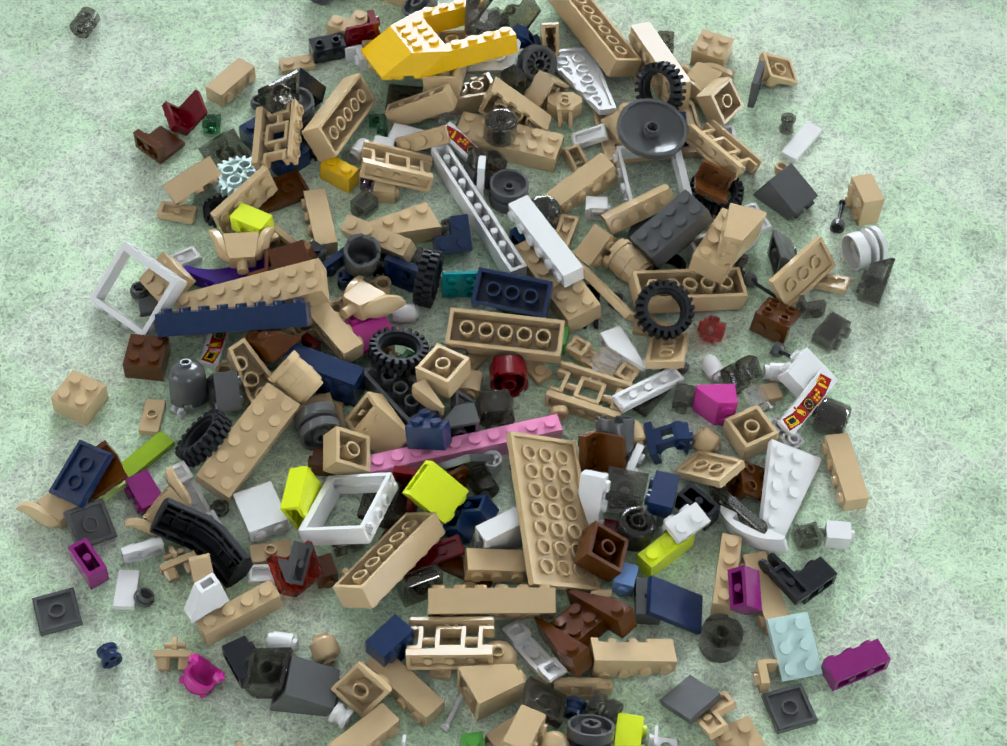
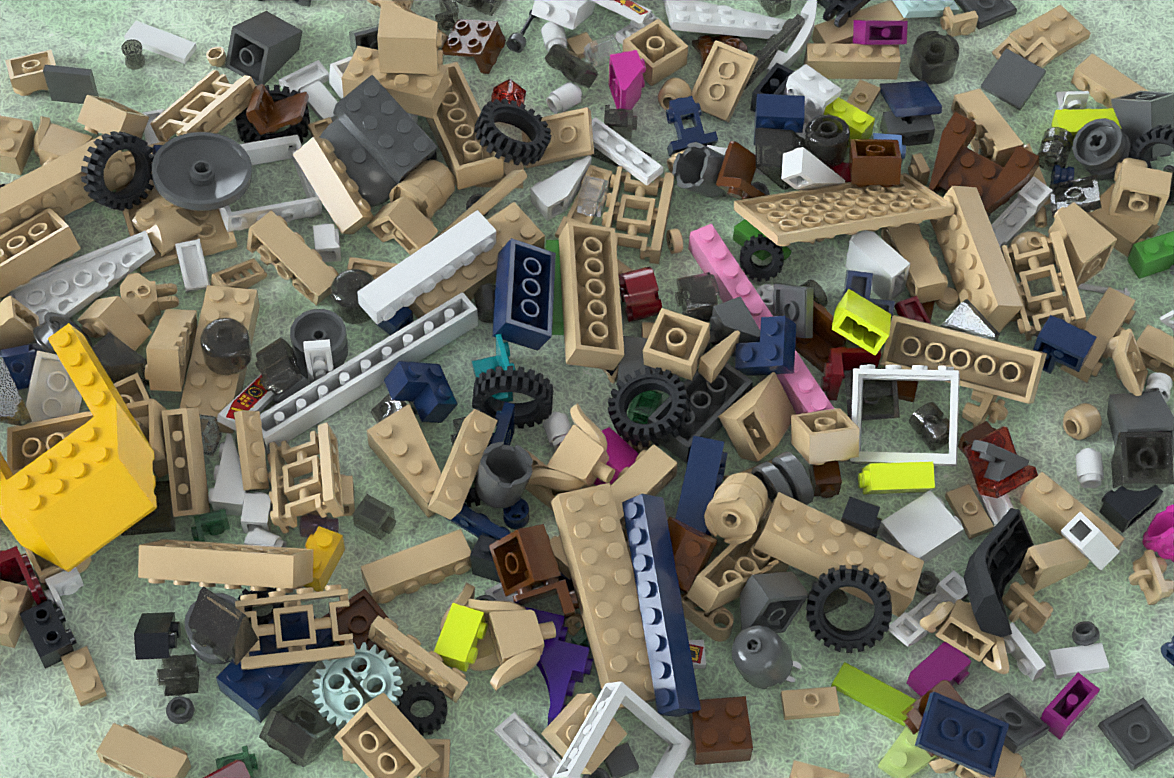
camera: 100 degrees left, 5 degrees up
(271, 464) = (862, 516): none -> black brick
(685, 576) = (864, 96): none -> tan plate

